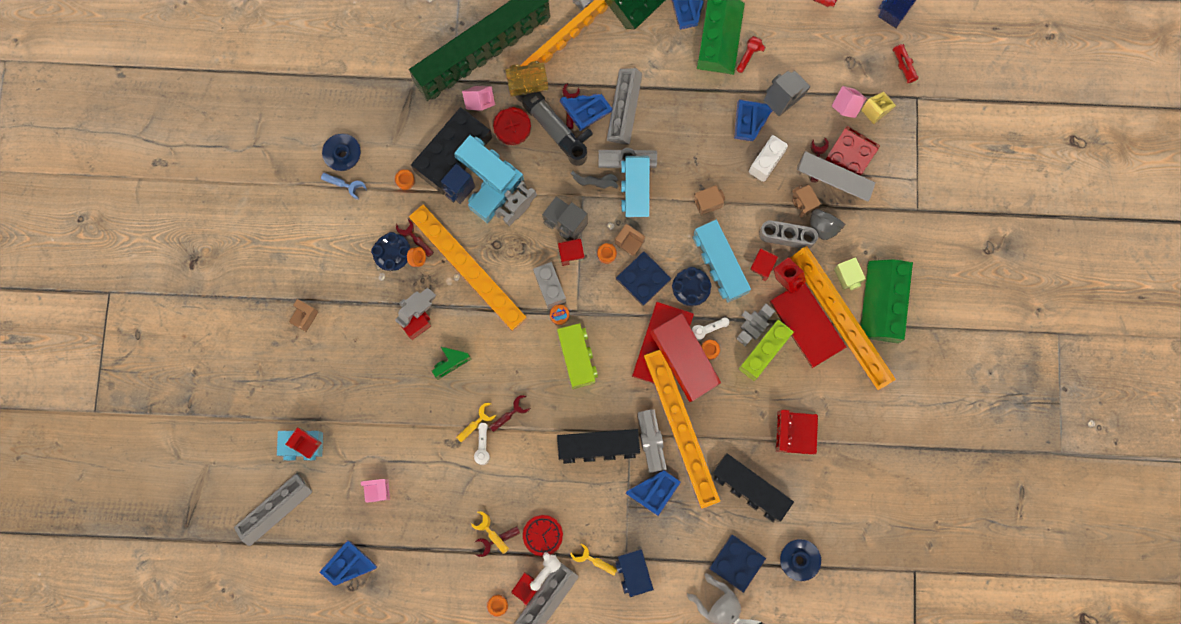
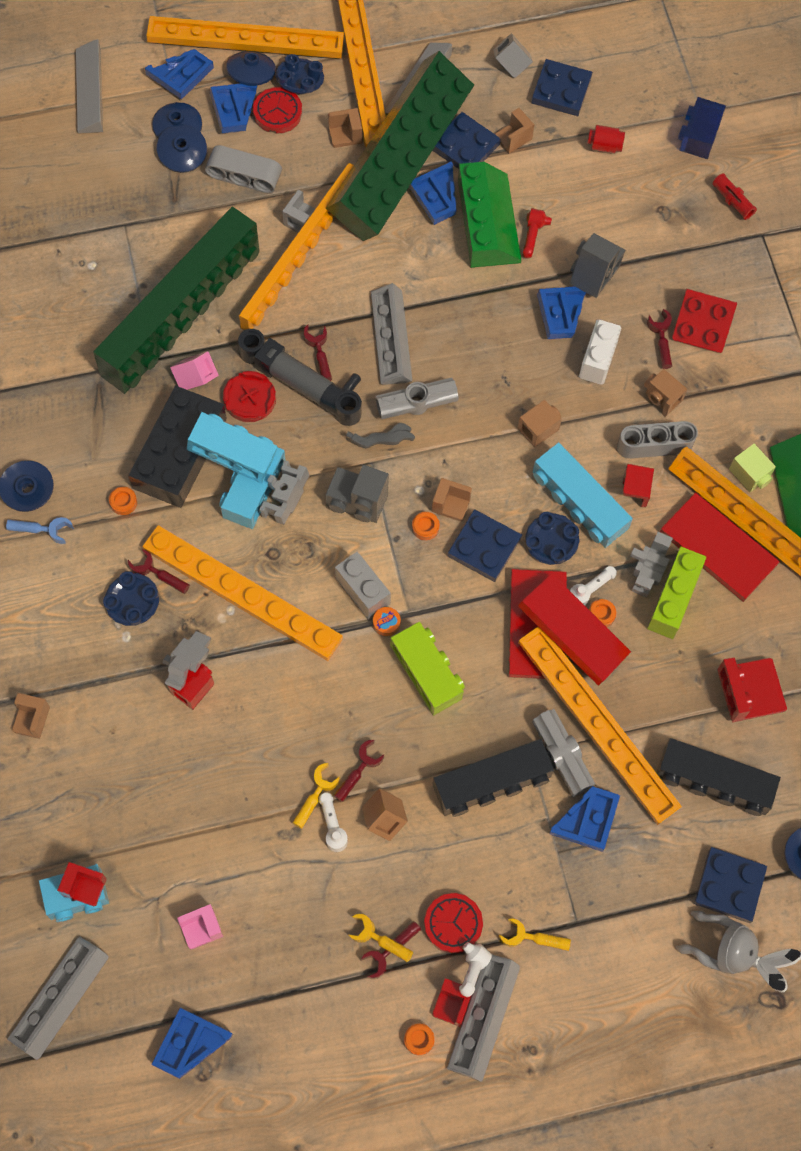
camera: 20 degrees left, 10 degrees down
(416, 257) = (168, 596): orange tile -> none
(455, 360) = (261, 716): green slope -> none
(457, 184) = (200, 485): dark blue brick -> none
(518, 449) = (384, 814): none -> medium nougat panel
(527, 78) = (255, 327): clear yellow brick -> none
(570, 251) = (377, 533): red panel -> none
(586, 109) = (343, 350): blue wing -> none
(635, 186) = (440, 427): medium azure brick -> none
(635, 573) = (596, 937): dark blue brick -> none
(785, 270) = (676, 489): red brick -> none
(825, 224) = (702, 412): dark grey hat -> none
(836, 176) = (694, 351): light grey slope -> none
(848, 102) = (679, 259): bright pink panel -> none
(878, 107) = (717, 257): light yellow slope -> none

